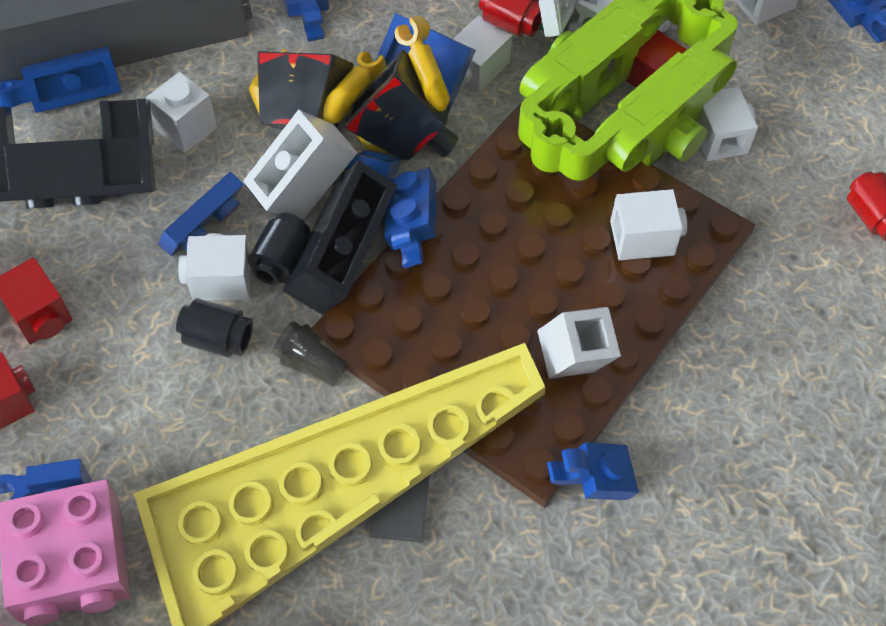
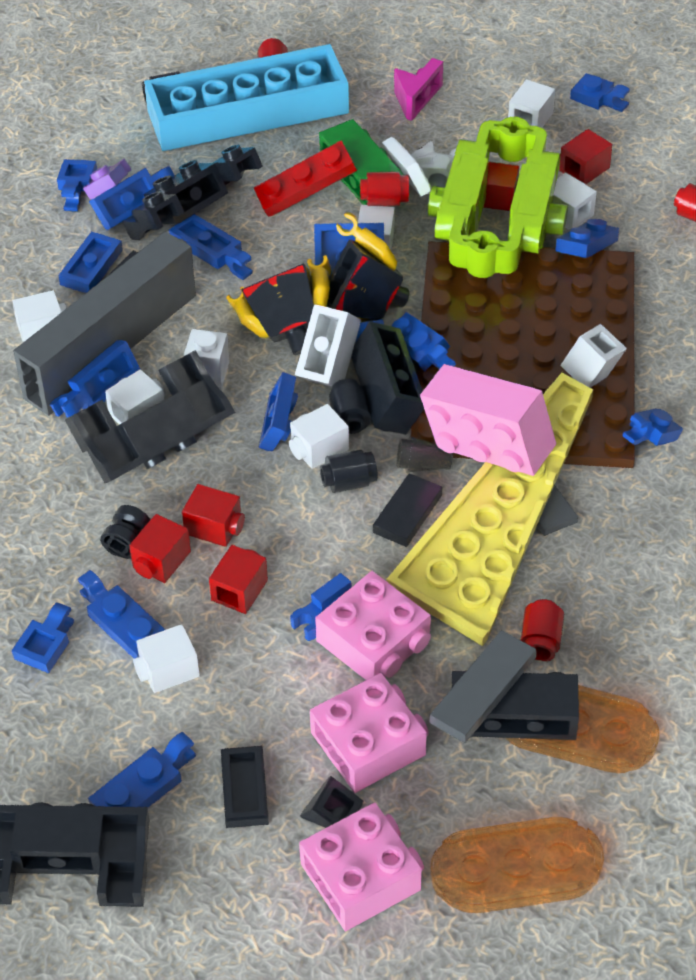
camera: 30 degrees left, 10 degrees down
(71, 117) = (133, 396): none -> white brick
(243, 412) = (407, 510): none -> black tile
(370, 365) = (489, 419): none -> bright pink brick
(647, 224) = (575, 277): white brick -> none
(706, 181) = (587, 238): none -> blue plate
(786, 78) = (586, 156): none -> red brick

